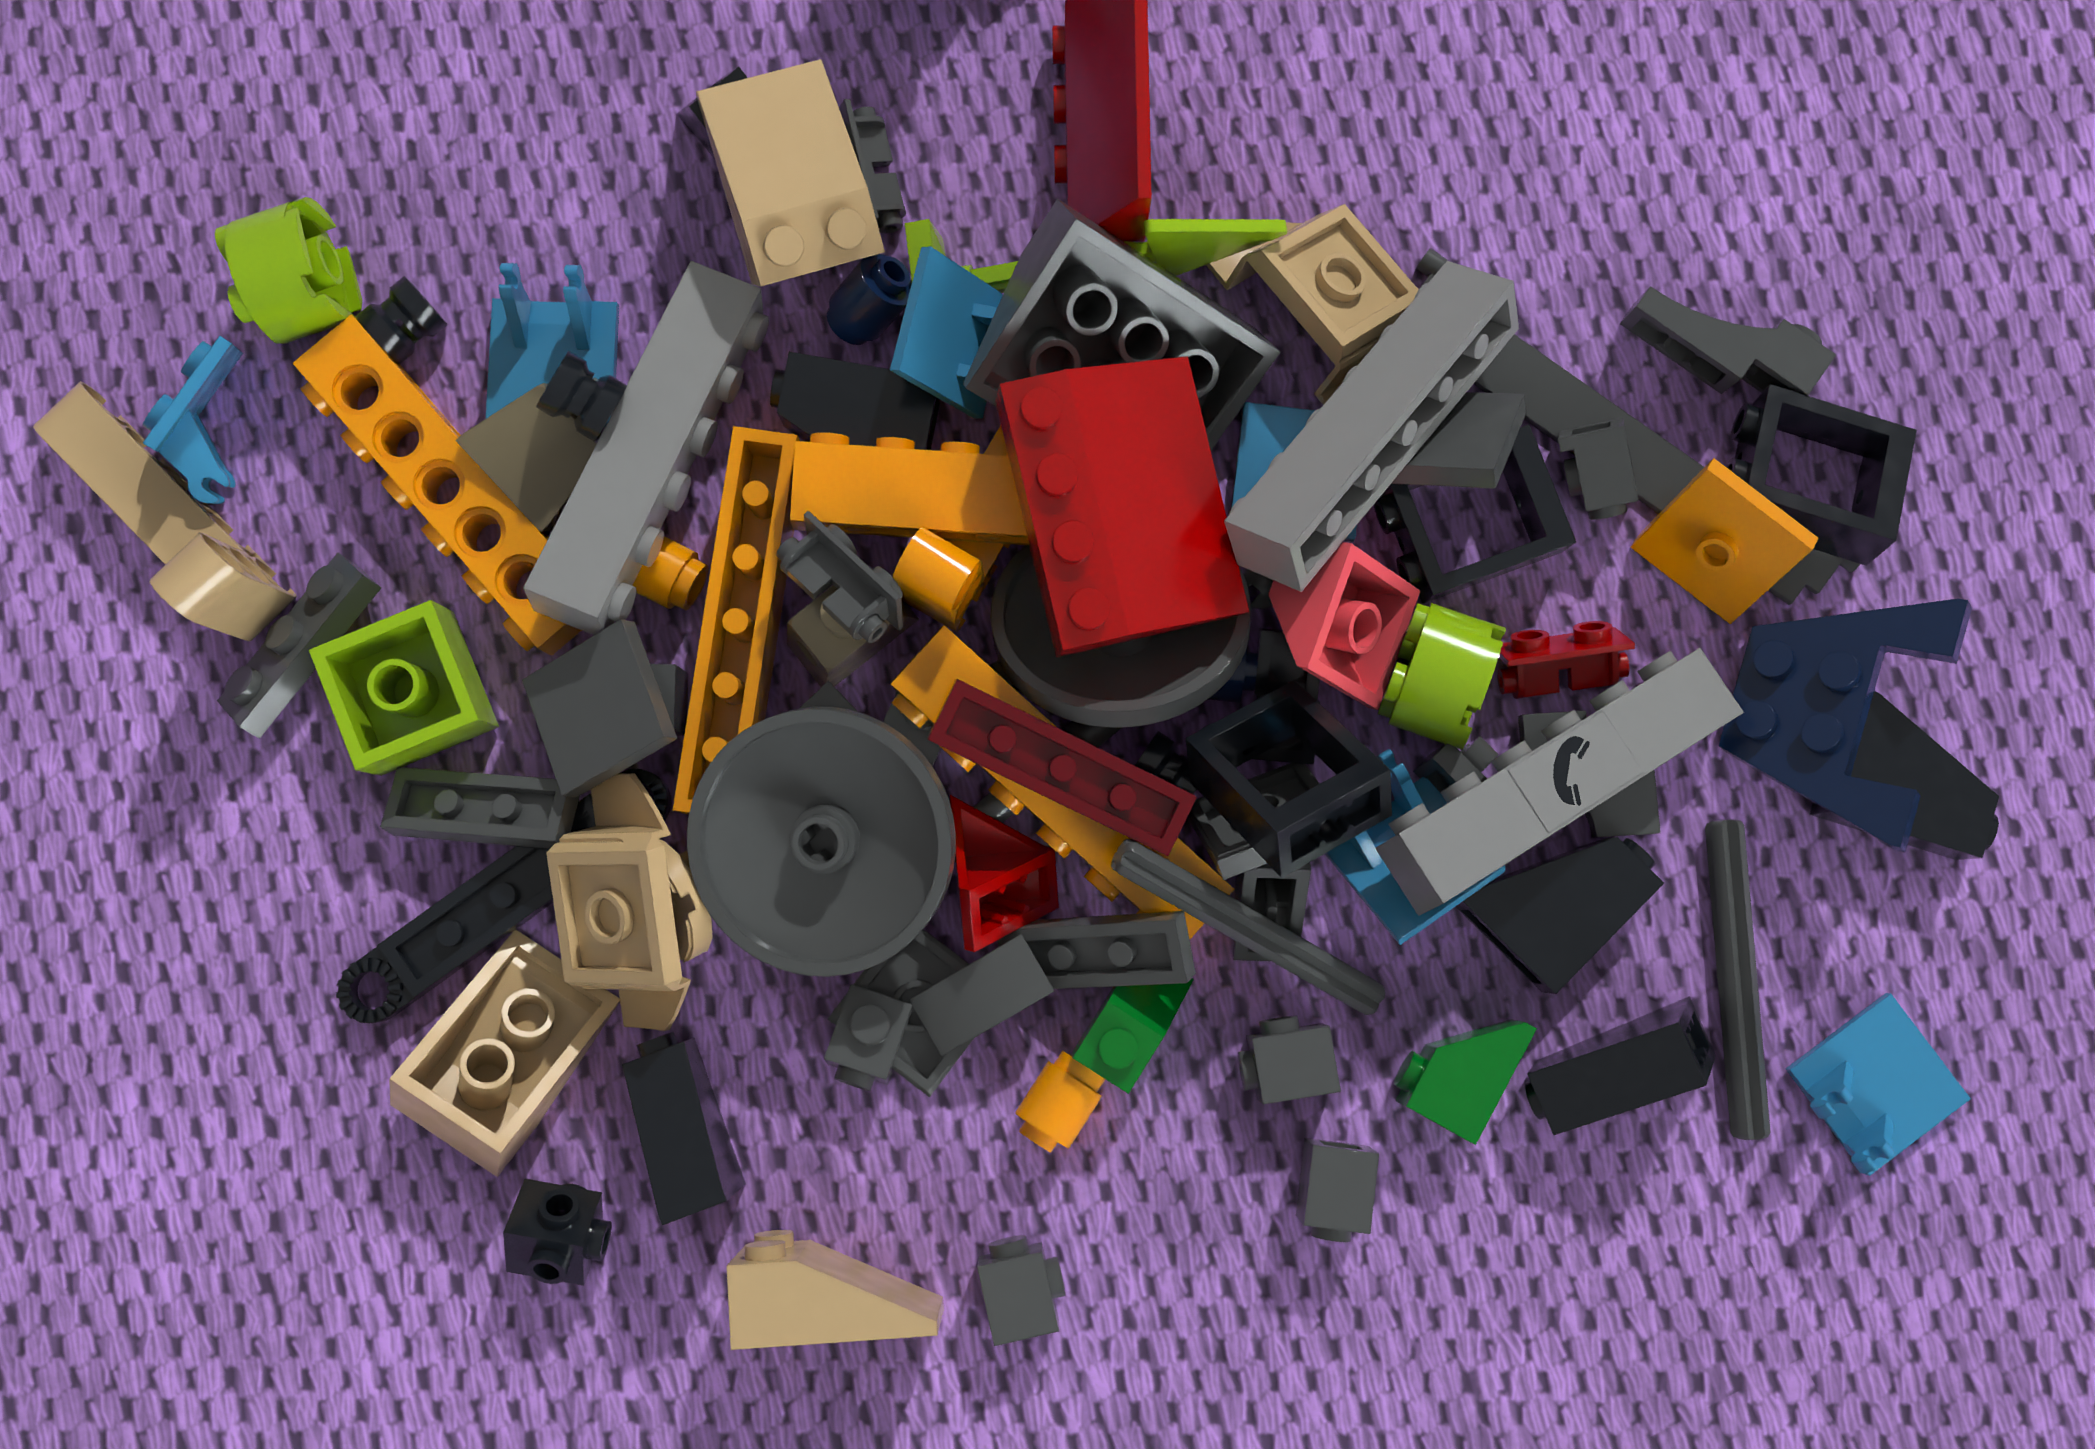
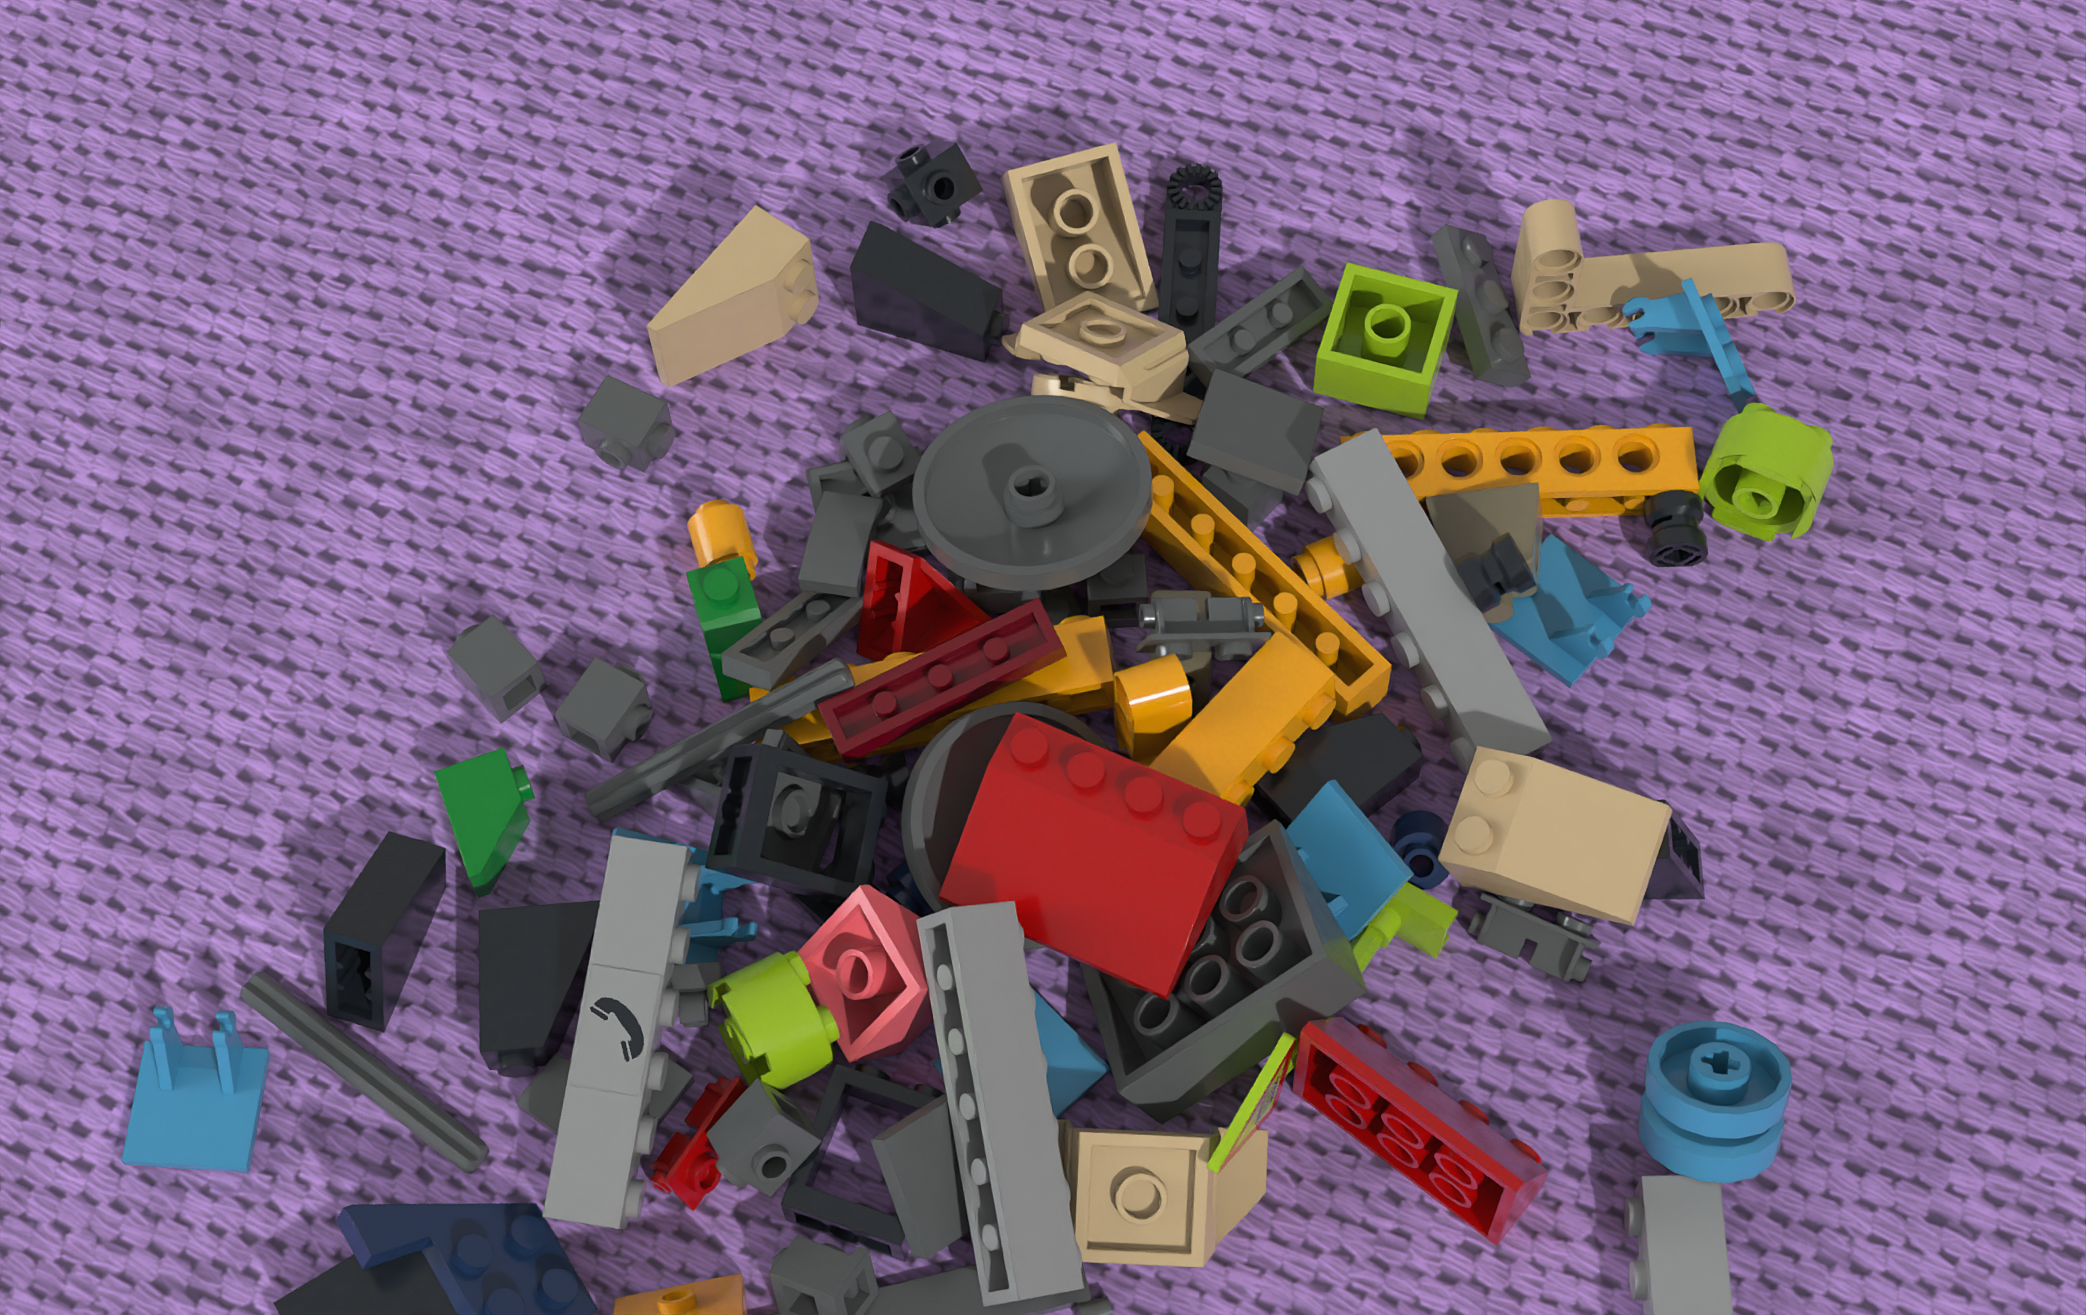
camera: 135 degrees right, 20 degrees down
(1544, 593) = (762, 1139): none -> dark grey brick

